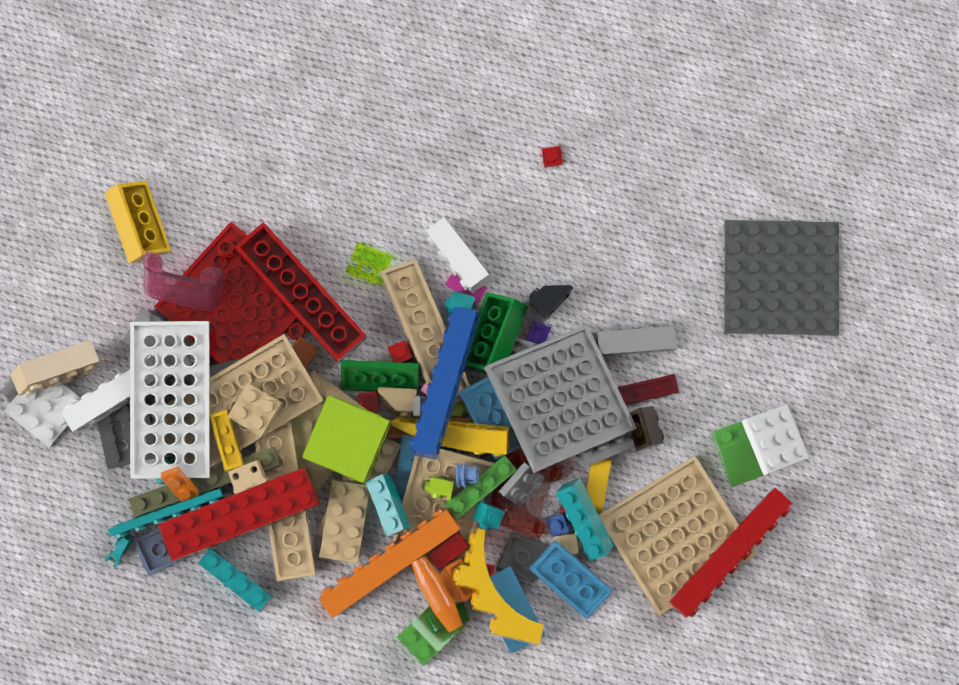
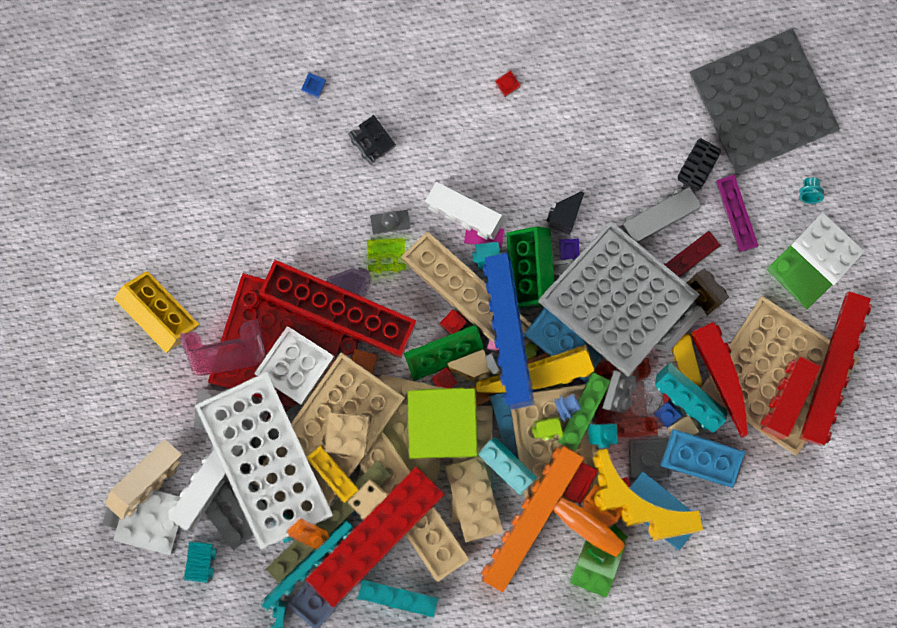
camera: 20 degrees left, 0 degrees up
(72, 466) = (199, 562): none -> teal brick
(239, 327) = (295, 365): none -> white plate
(326, 273) = (353, 280): none -> clear purple slope
(374, 79) = (313, 85): none -> blue plate
(386, 235) = (390, 222): none -> dark grey tile
(410, 152) = (377, 137): none -> black plate
(625, 507) = (723, 372): none -> red slope
(676, 560) = (790, 398): none -> red brick
(691, 309) = (699, 164): none -> black tyre
(707, 370) = (736, 213): none -> magenta plate
(785, 380) = (811, 191): none -> teal piece

